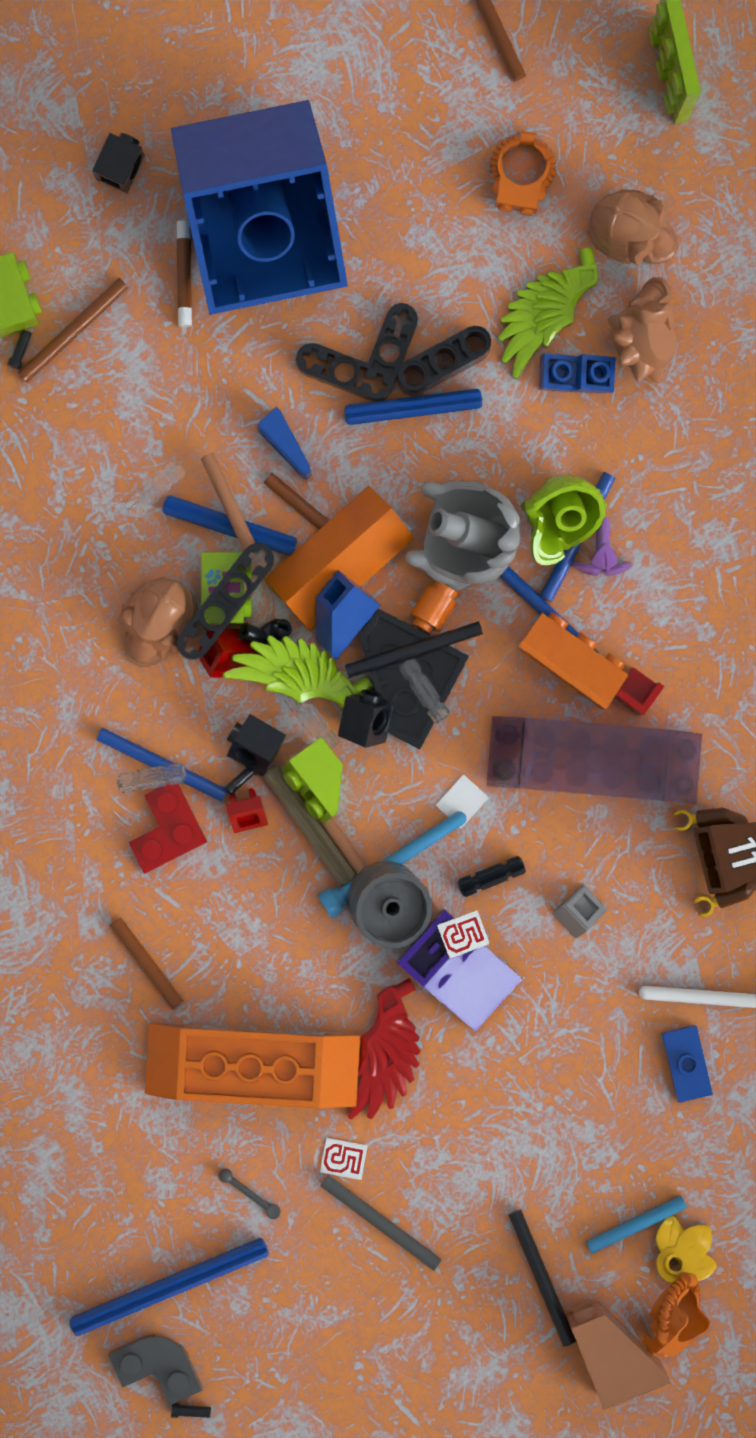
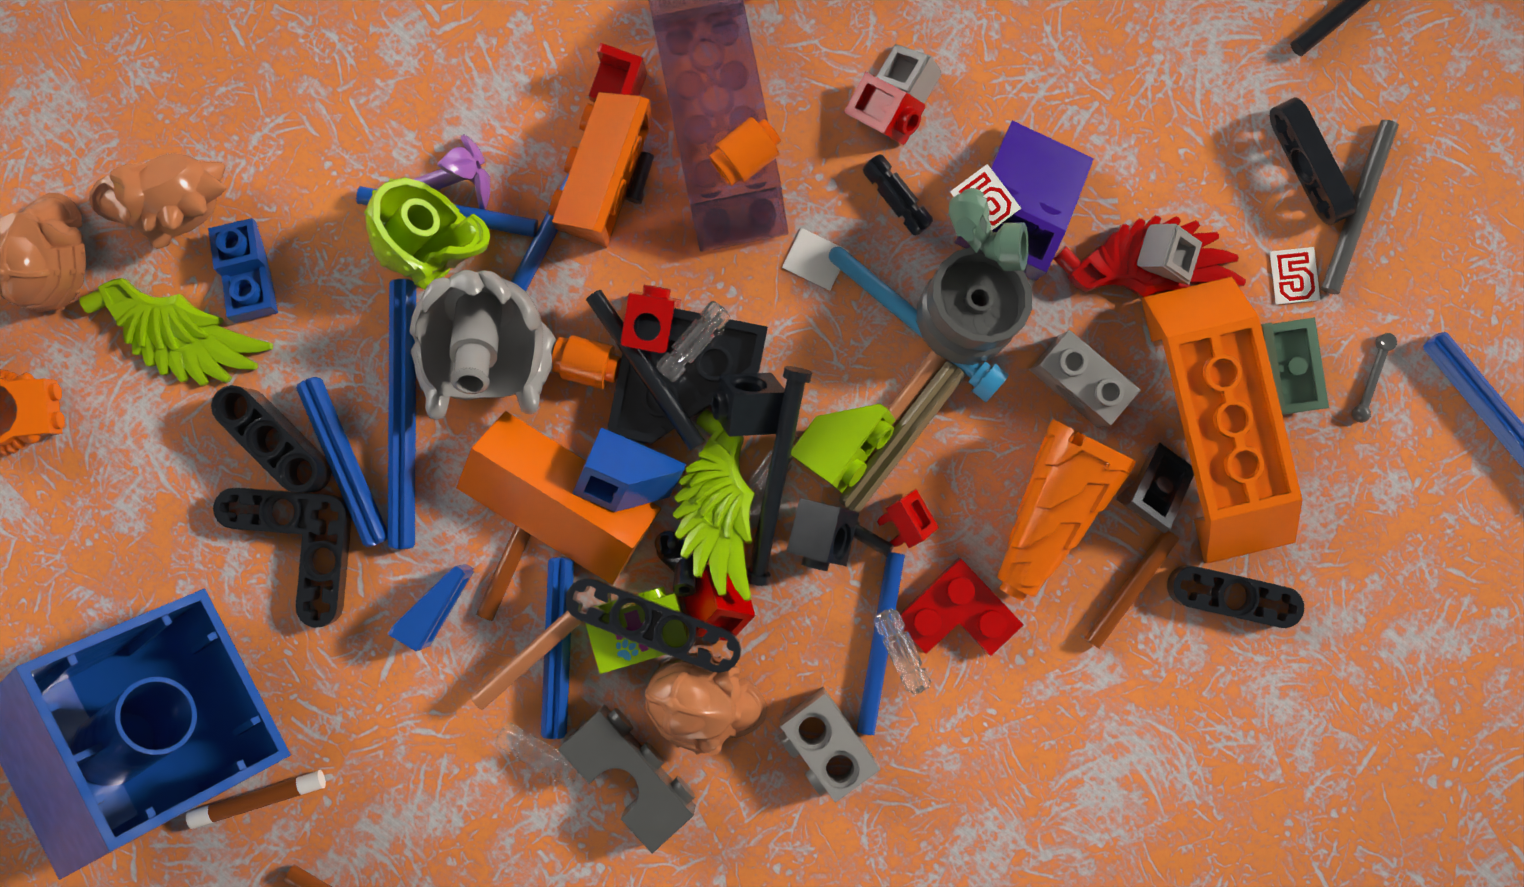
camera: 105 degrees left, 0 degrees up
(97, 1056) = (1251, 586): none -> black beam
(101, 712) = (836, 739): none -> light grey brick
(148, 542) = (607, 744): none -> dark grey arch
(215, 1002) = (1159, 488): none -> black slope
(227, 927) = (1065, 493): none -> orange cone
(275, 1130) = (1296, 365): none -> sand green bracket
(311, 972) = (1084, 379): none -> light grey brick
(371, 756) = (795, 384): none -> black bar
(387, 1065) = (1169, 252): none -> light grey slope
(425, 1194) = (1312, 161): none -> black beam
(435, 460) = (401, 416): none -> blue axle
(448, 916) = (971, 221): none -> sand green arm
(460, 673) = (654, 301): none -> red bracket
(548, 768) = (745, 151): none -> orange brick
(558, 885) = (885, 108): none -> bracket
(560, 687) = (635, 193): none -> black piece

